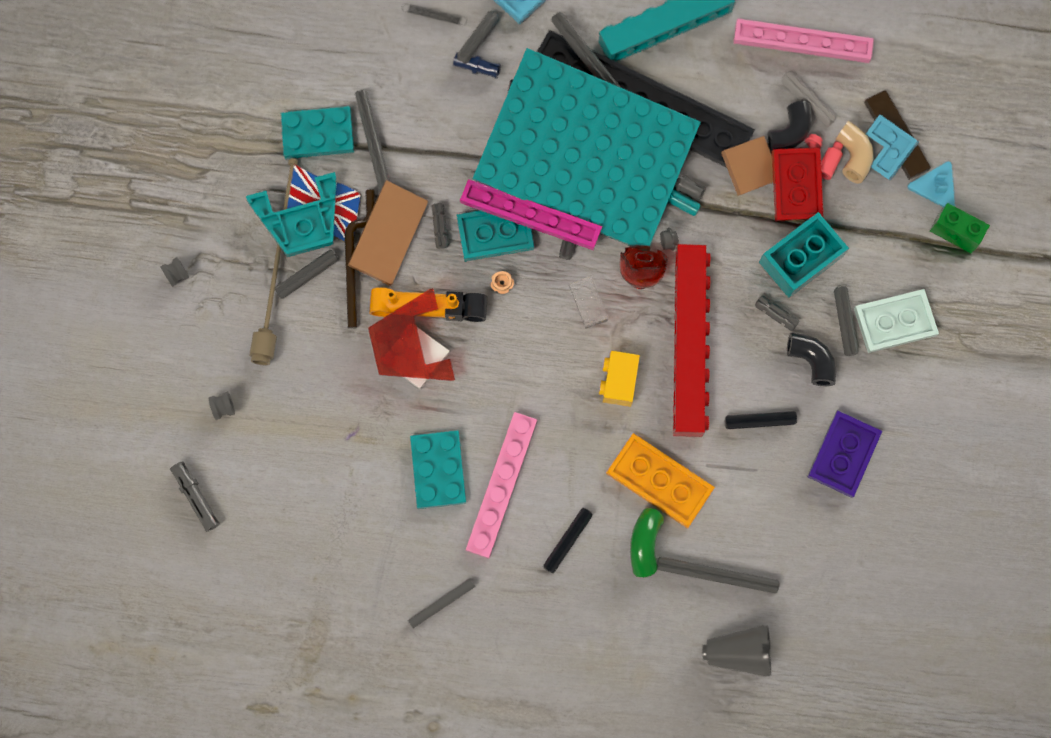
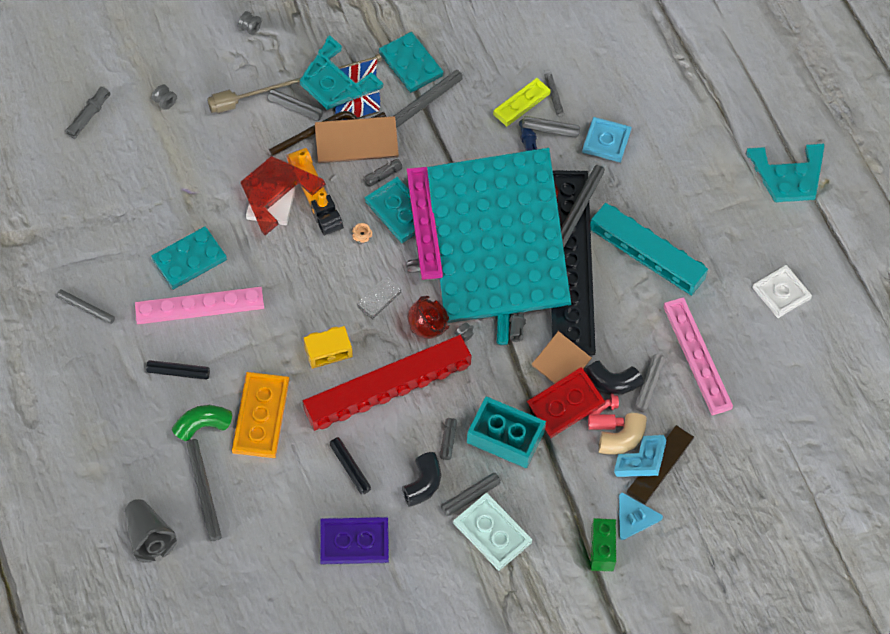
camera: 60 degrees right, 15 degrees down
(430, 49) = (521, 102): none -> neon yellow plate

